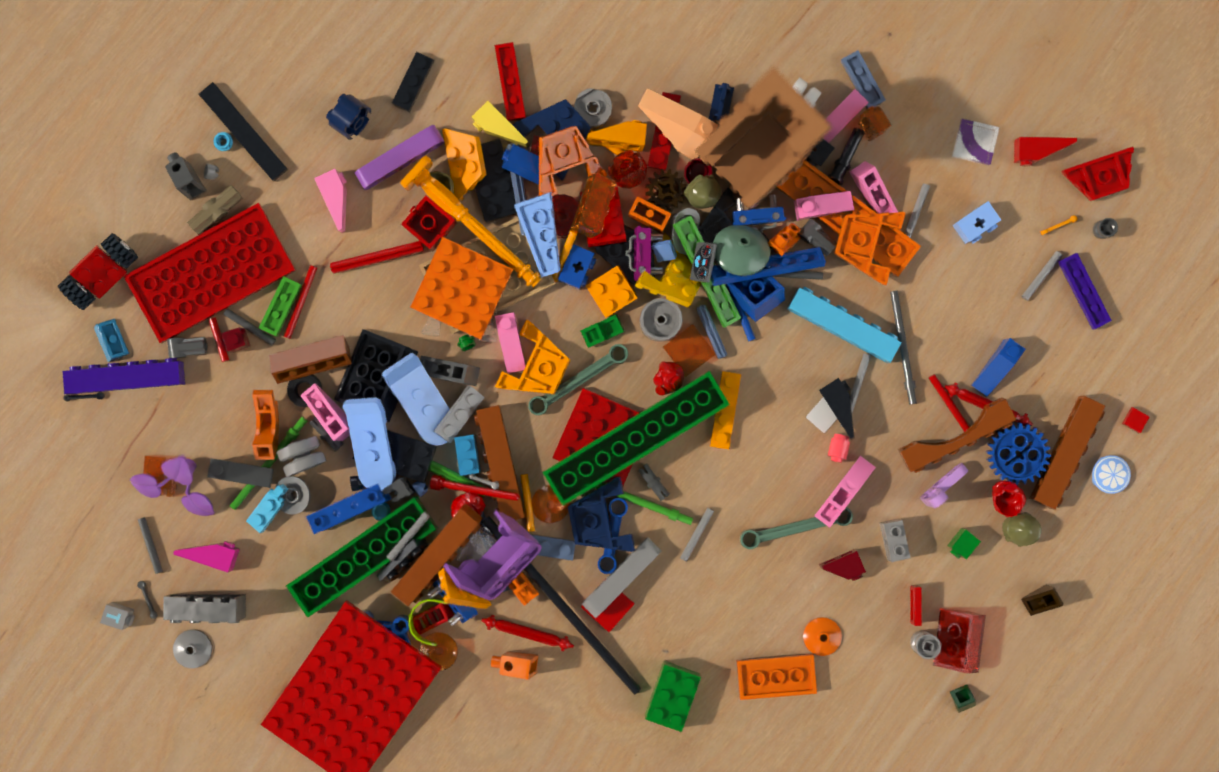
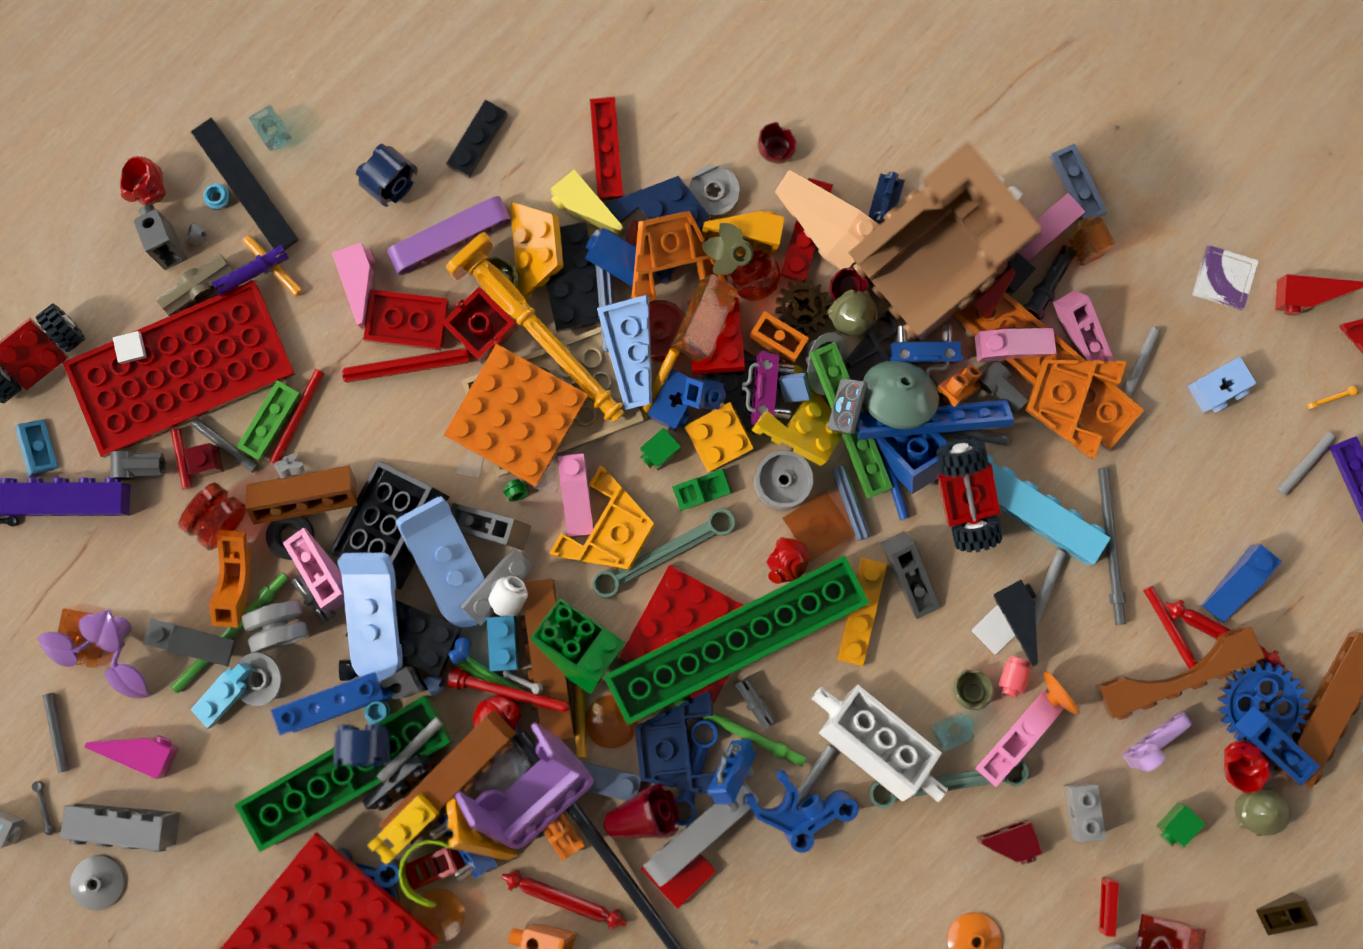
camera: 10 degrees right, 5 degrees down
(167, 135) = (142, 181): none -> red hair
(172, 261) = (129, 347): none -> white tile
(245, 379) = (211, 512): none -> clear red wheel
(253, 81) = (263, 121): none -> clear light blue brick
(254, 196) = (250, 270): none -> dark purple pin
(270, 190) = (285, 279): none -> light orange bar
(299, 338) = (289, 466): none -> light grey piece
(373, 223) = (405, 319): none -> red plate
(373, 537) = (361, 746): none -> dark blue brick
(409, 592) = (403, 828): none -> yellow plate
(438, 462) = (461, 652): none -> blue arm
(468, 420) = (508, 596): none -> white head
(521, 451) = (577, 645): none -> green slope
(568, 304) = (659, 449): none -> green brick
(580, 569) = (645, 815): none -> dark red cone
(602, 261) = (709, 393): none -> blue brick
(604, 152) = (724, 248): none -> olive plate
(636, 68) = (776, 143): none -> dark red hair
(640, 533) = (732, 772): none -> blue piece
(696, 560) = (807, 817): none -> blue piece
(744, 503) = (880, 743): none -> white brick
(758, 380) = (910, 574): none -> dark grey slope
(789, 493) = (941, 731): none -> clear light blue brick
(796, 319) = (969, 495): none -> plate
(803, 172) = (989, 299): none -> red slope
(809, 460) = (973, 690): none -> olive hair
(869, 459) = (1058, 696): none -> orange dish
(1028, 482) = (1277, 745): none -> blue slope

